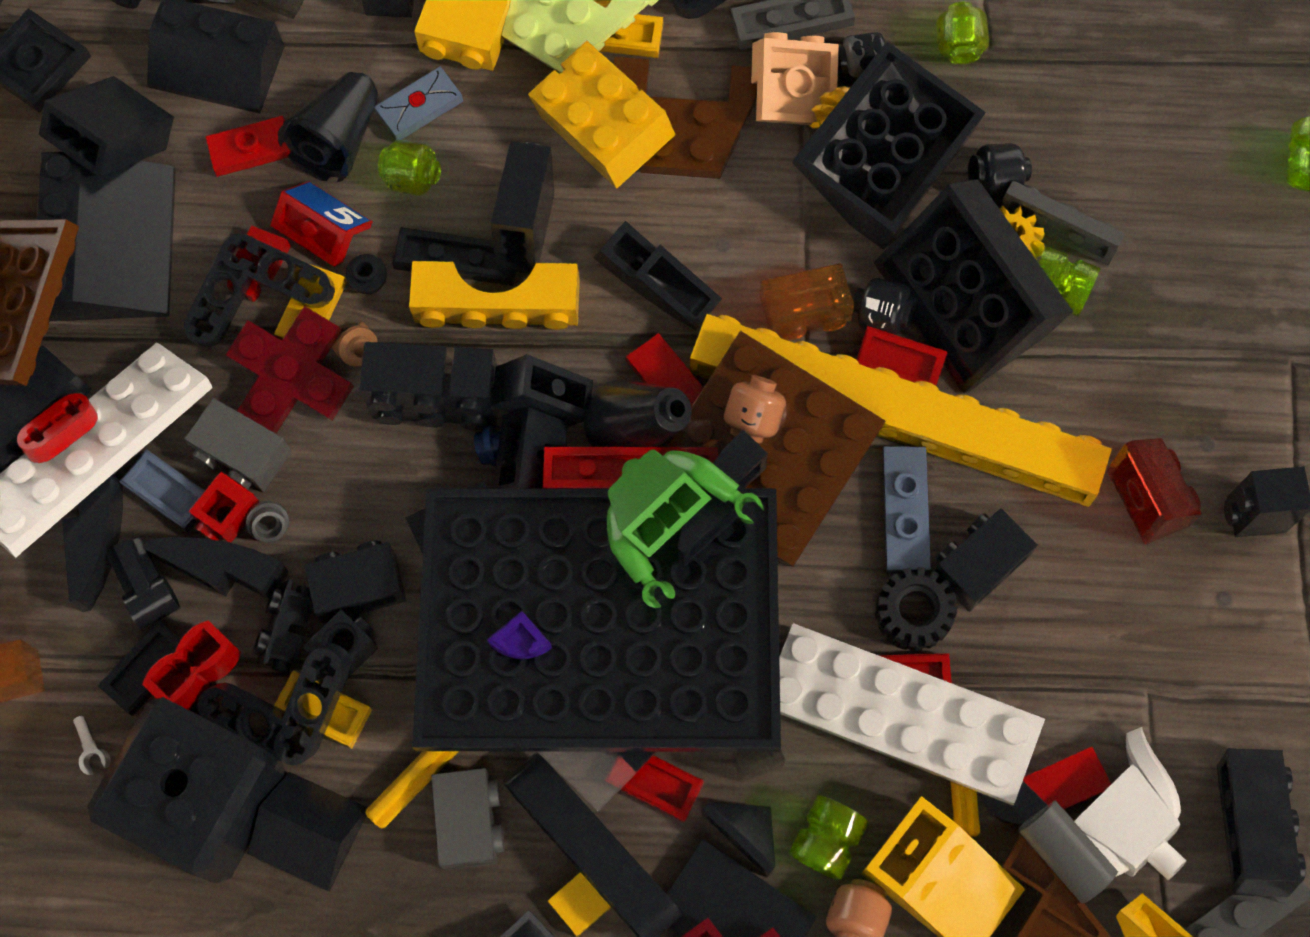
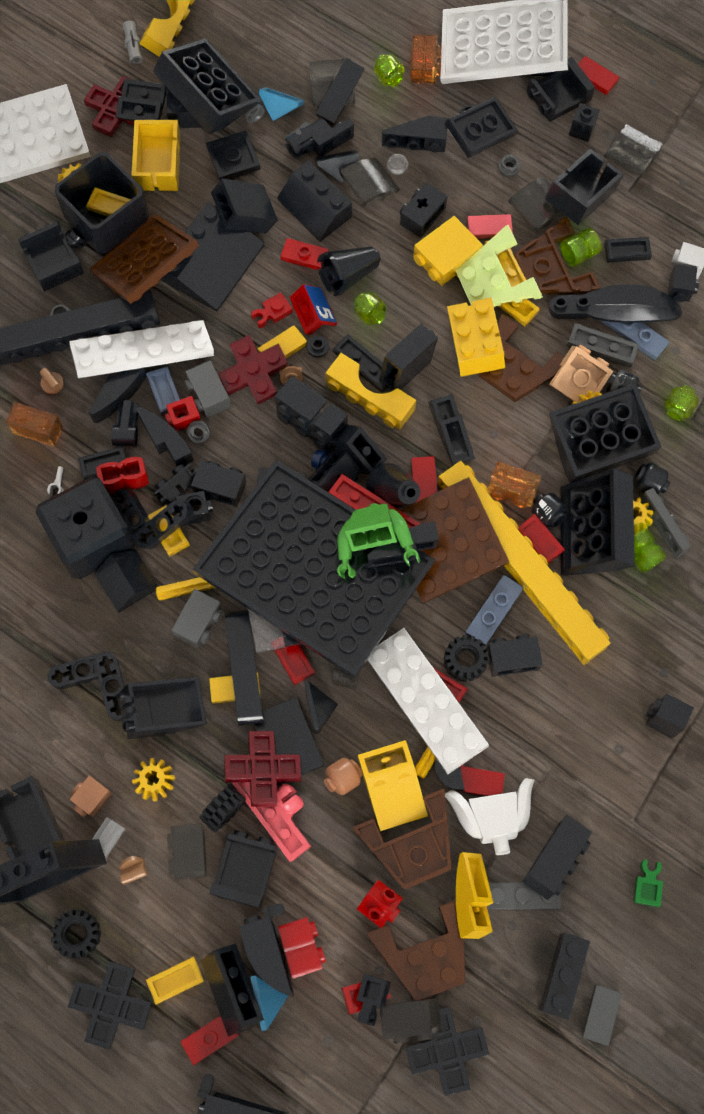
camera: 30 degrees right, 0 degrees up
(57, 428) = (133, 331): red beam -> none
(241, 276) = (260, 311): black beam -> none
(418, 104) = (395, 281): sand blue tile -> none
(519, 639) = (271, 552): dark purple tile -> none
(755, 408) = (449, 516): nougat head -> none
(828, 838) = (353, 732): clear neon green wheel -> none
(1068, 852) = (456, 809): dark grey brick -> none
(1153, 489) = (619, 675): clear red slope -> none

